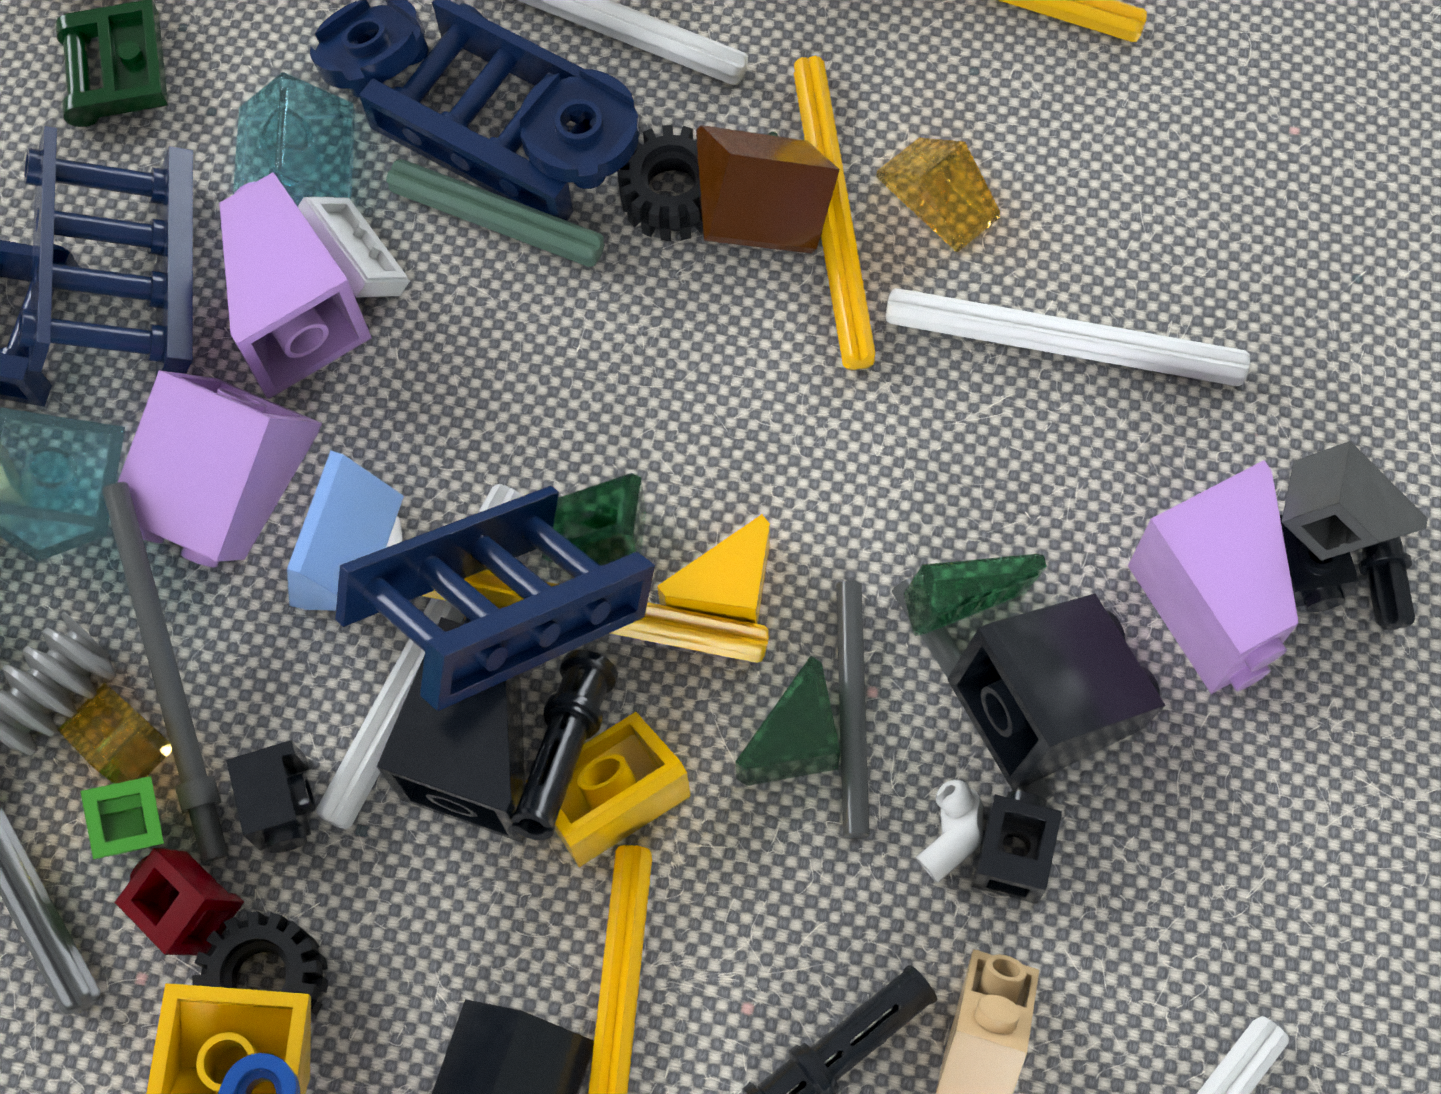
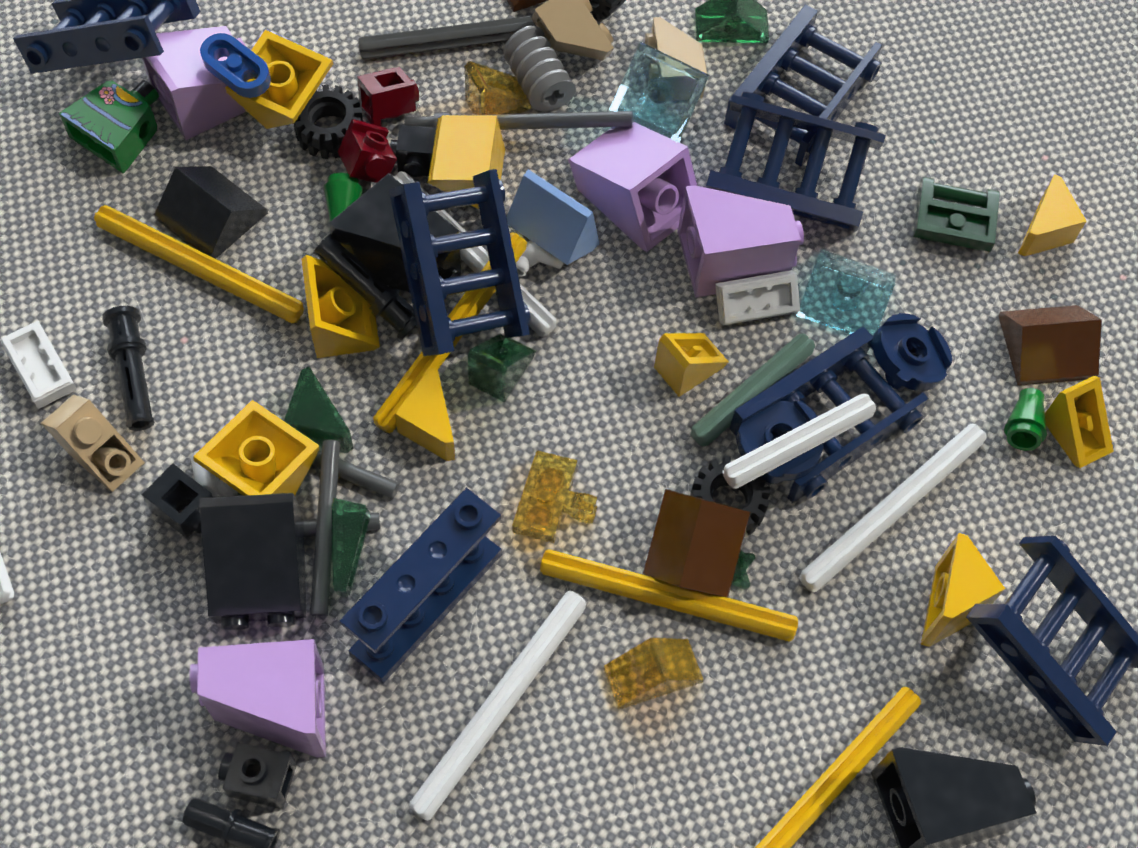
camera: 105 degrees right, 5 degrees down
(122, 817) = (446, 79): bright green brick -> none
(269, 703) = (463, 149): none -> yellow slope
(314, 867) = (366, 151): none -> dark red brick
(412, 876) = (340, 193): none -> green cone
(490, 296) = (687, 360): none -> yellow slope
(585, 88) = (798, 441): none -> white axle
(771, 386) = (549, 496): none -> clear yellow plate
(907, 765) = (258, 453): none -> yellow slope
(934, 642) = (323, 540): none -> dark grey bar
(991, 449) = (423, 585): none -> dark blue fence
(1345, 503) = (255, 775): dark grey slope -> none

